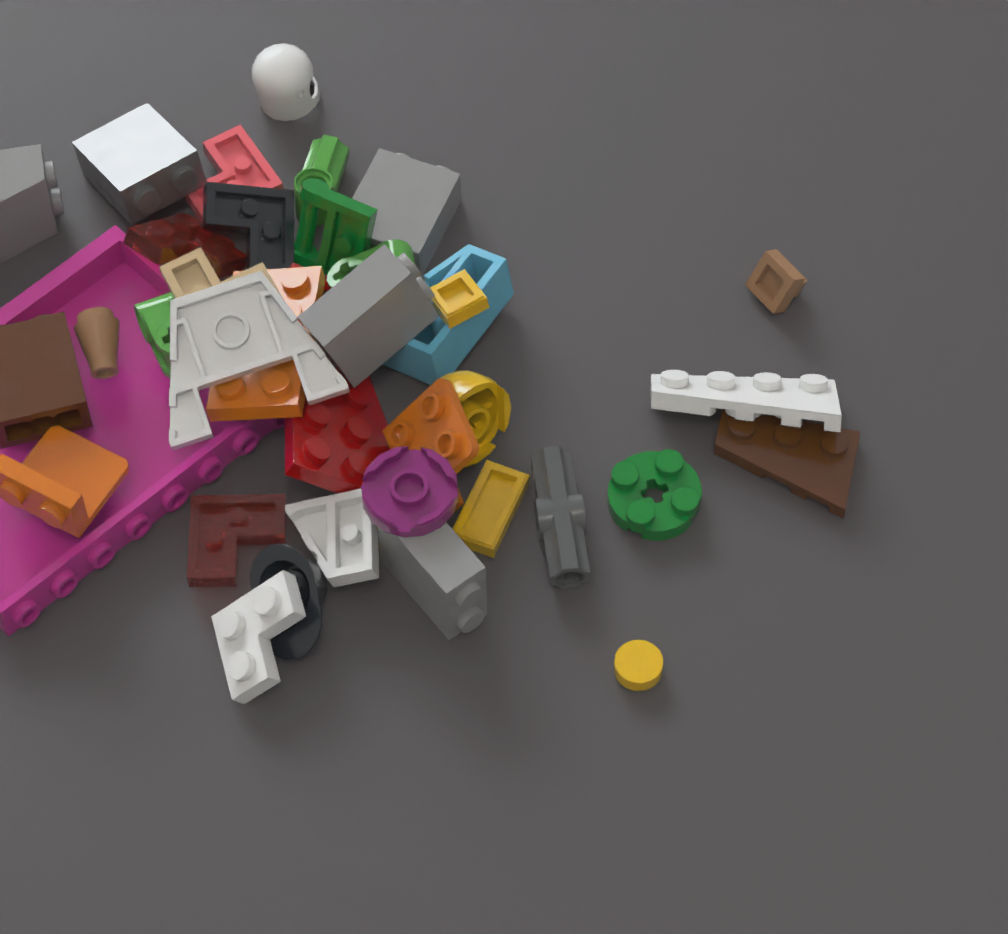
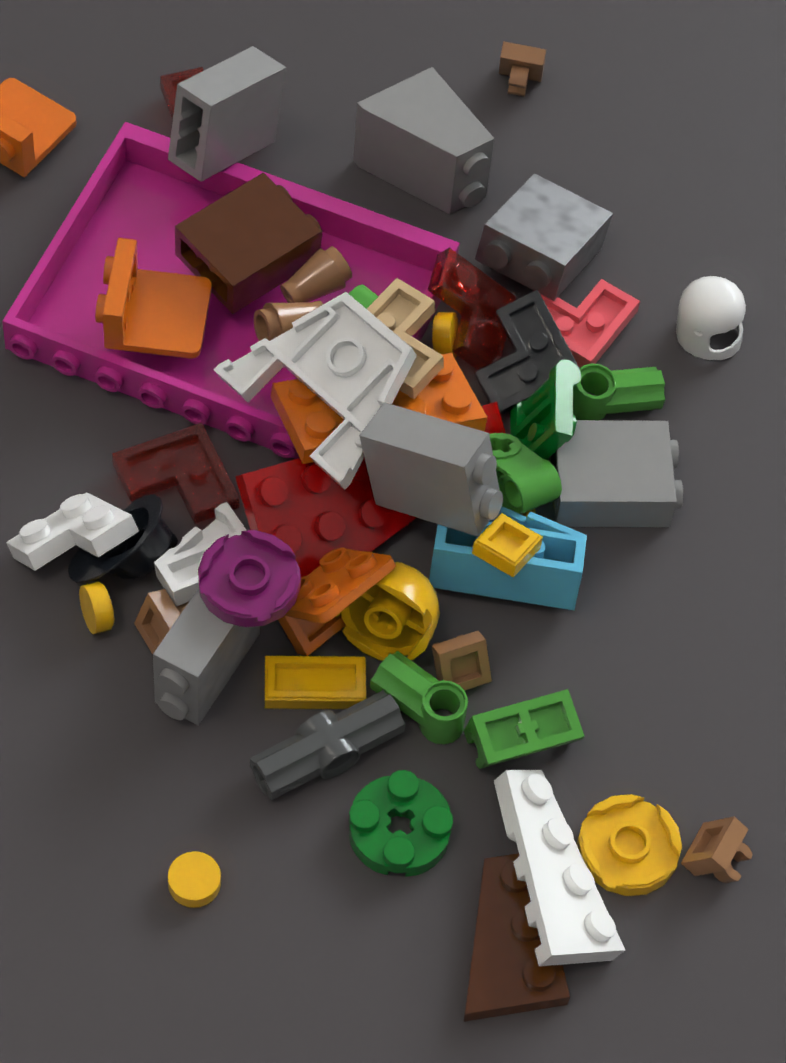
camera: 60 degrees right, 0 degrees up
(135, 384) = (278, 317): none -> medium nougat cone
(340, 647) = (96, 607): none -> yellow tile
(385, 599) = (157, 617): none -> medium nougat tile
(528, 390) = (463, 660): none -> medium nougat tile
(548, 428) = (420, 694): none -> bright green piece
(615, 368) = (524, 728): none -> bright green hinge
(741, 340) = (629, 845): none -> yellow tile

